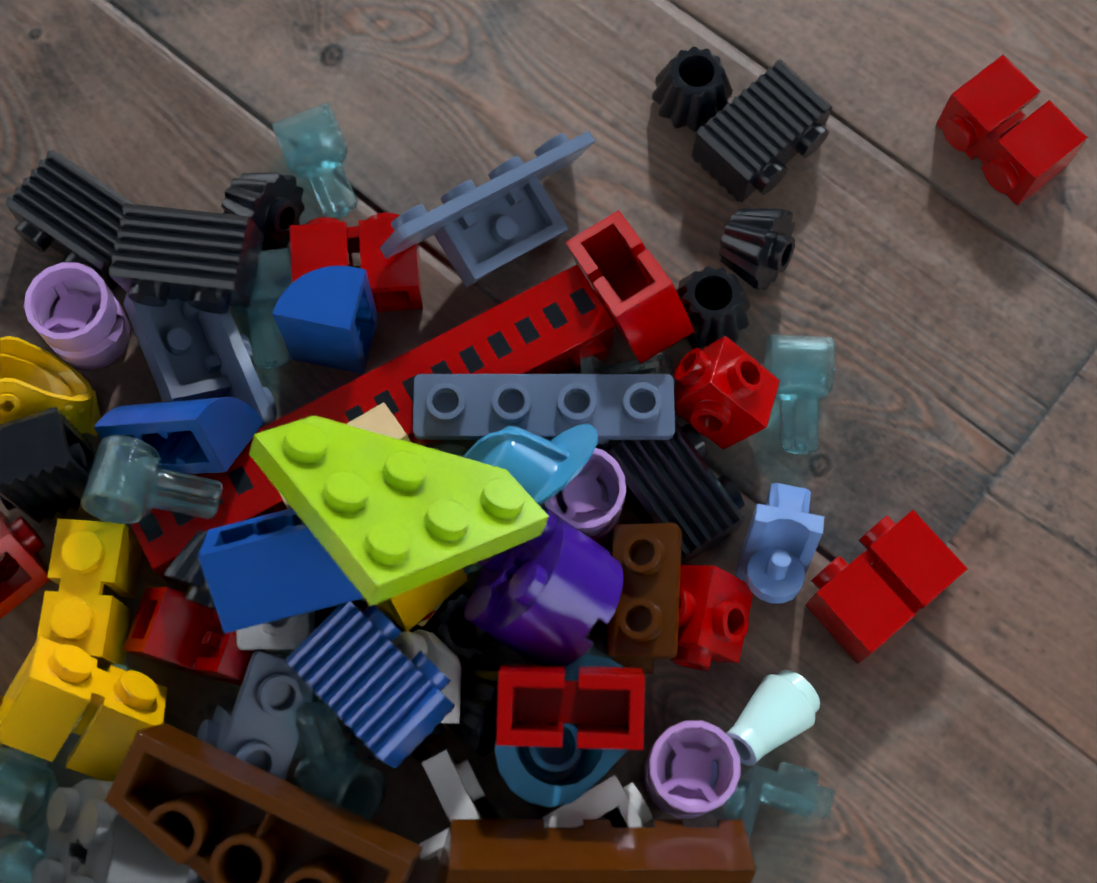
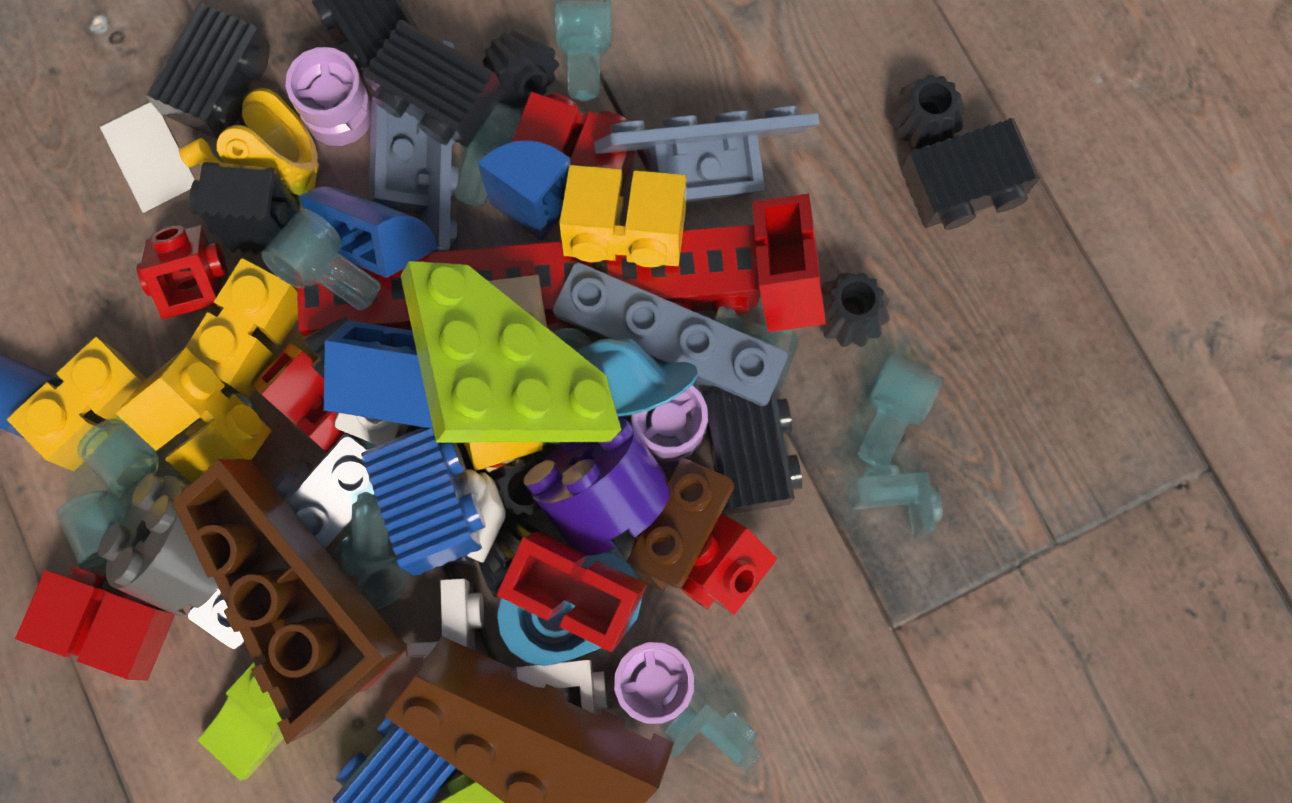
camera: 25 degrees right, 5 degrees up
(478, 297) = (594, 215): none -> yellow piece
(724, 392) = (827, 386): red brick -> none
(758, 245) = (919, 272): black piece -> none
(775, 714) = (744, 670): light aqua cone -> none
(779, 544) = (811, 534): medium blue hips -> none
(827, 469) = (886, 487): none -> clear light blue bracket
(884, 585) = (914, 593): red piece -> none
(988, 124) = (1177, 252): red piece -> none

